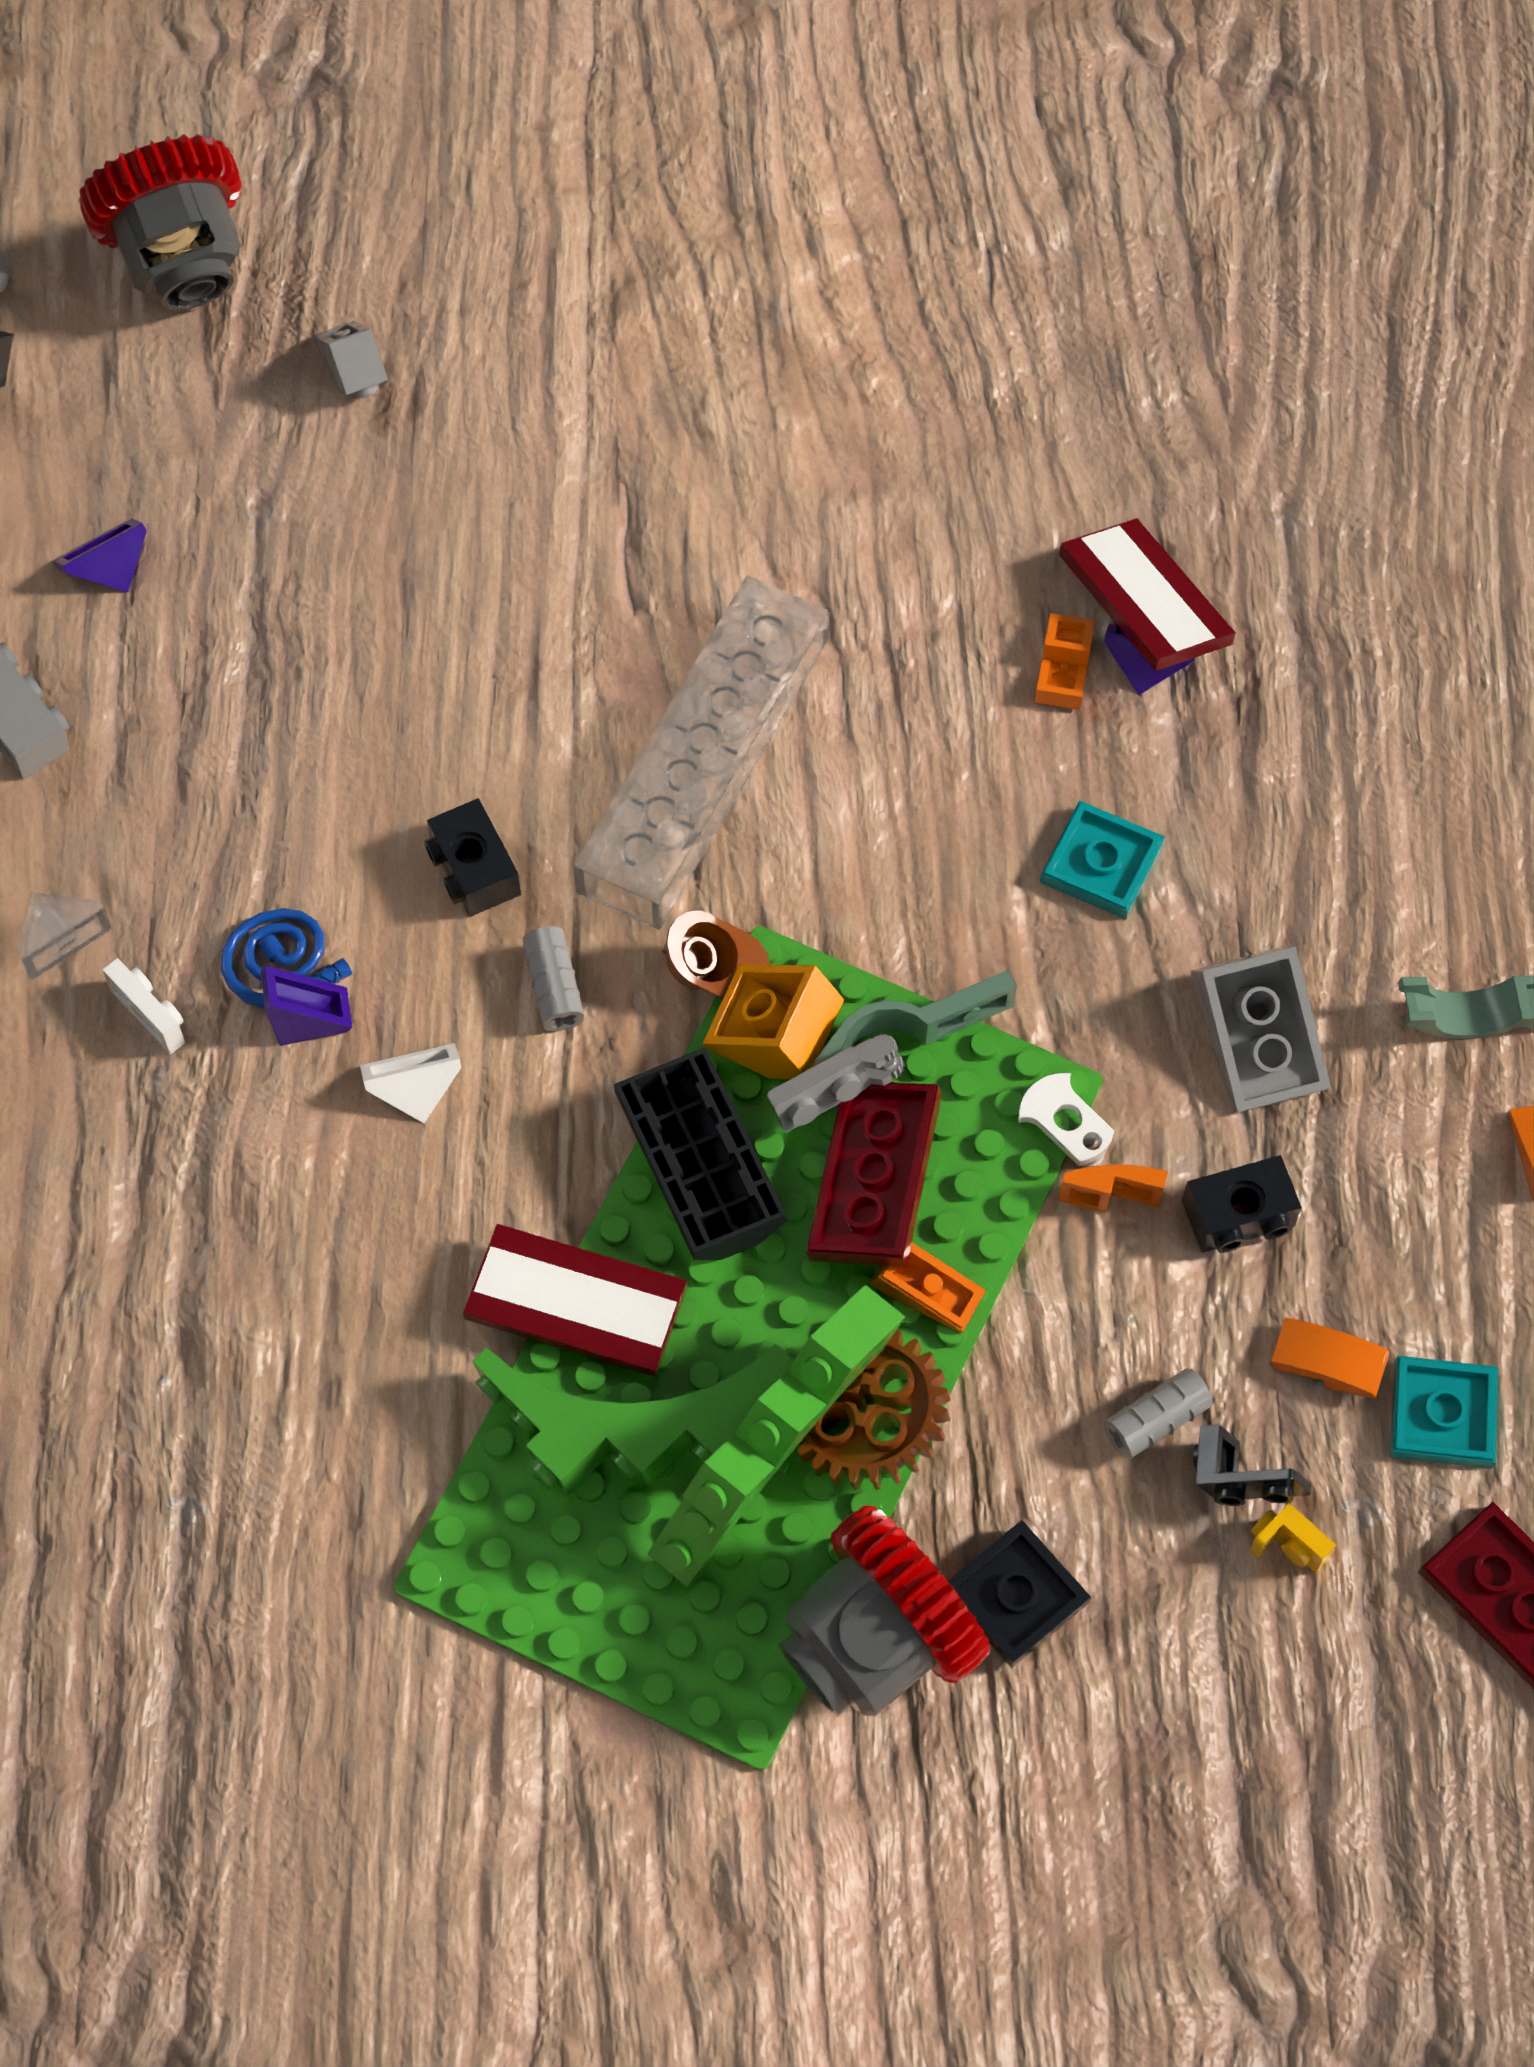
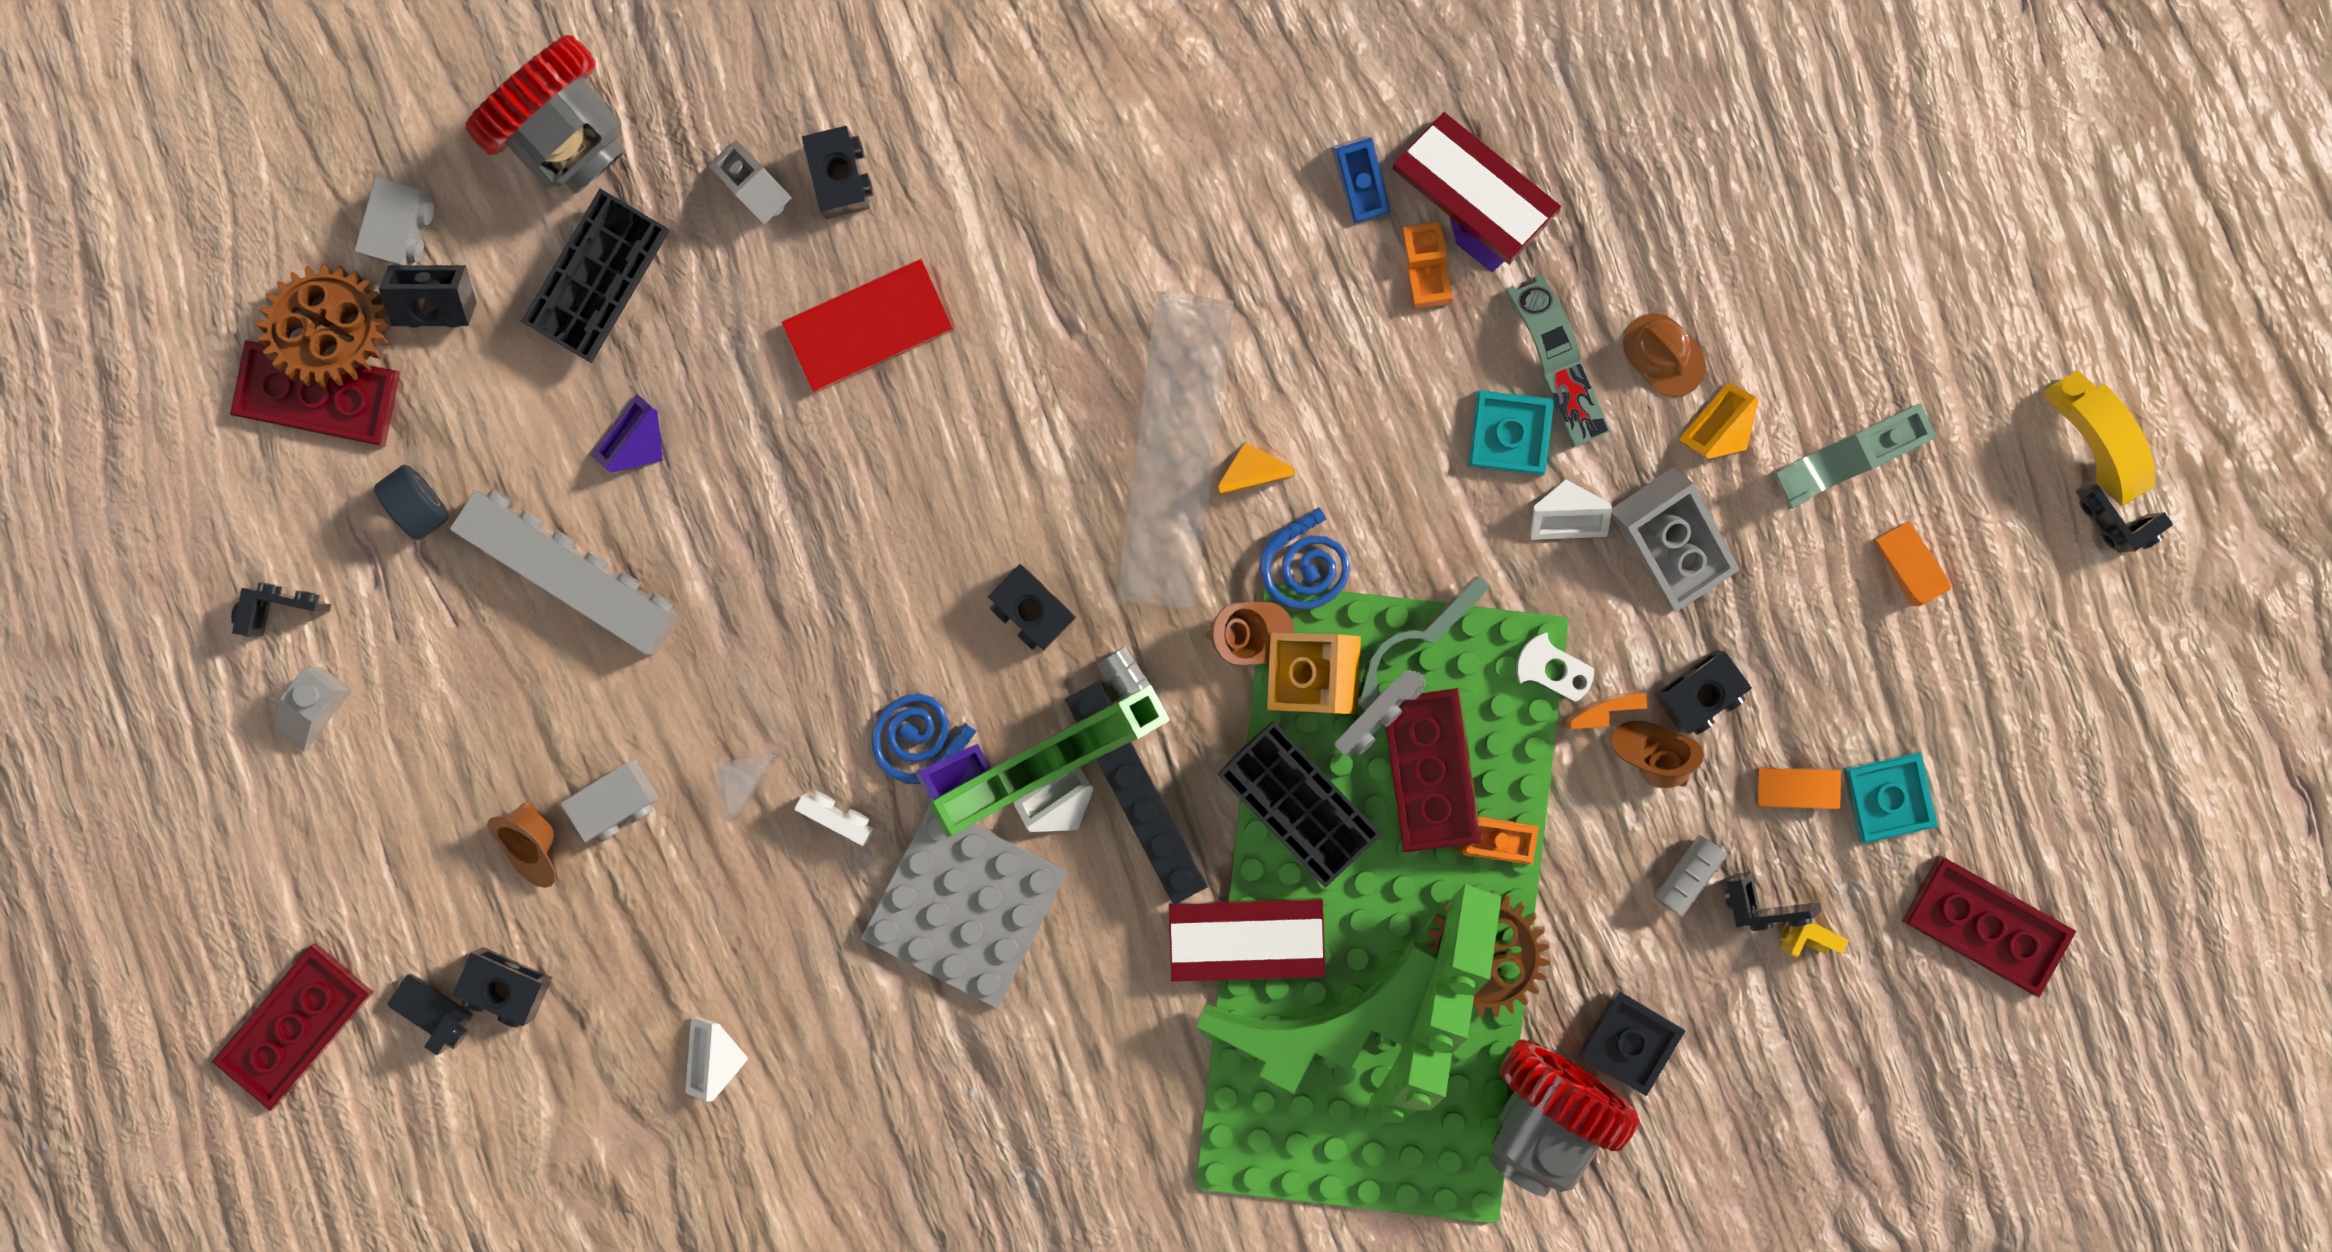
camera: 20 degrees left, 25 degrees up
(142, 387) = (595, 275): none -> black piece
(252, 1158) = (965, 907): none -> light grey plate
(414, 530) = (867, 325): none -> red tile
(442, 353) = (823, 153): none -> black brick
(447, 997) = (1049, 760): none -> bright green arch
(511, 1089) = (1143, 805): none -> black brick
(786, 804) = (1253, 469): none -> light orange slope
(810, 922) = (1309, 571): none -> blue piece
(1021, 555) = (1361, 178): none -> blue slope
(1142, 965) = (1570, 514): none -> white slope
(1162, 1259) = (1659, 753): none -> dark orange piece
(1185, 805) = (1559, 360): none -> piece
(1313, 836) = (1664, 354): none -> dark orange piece
(1360, 927) = (1723, 424): none -> light orange slope

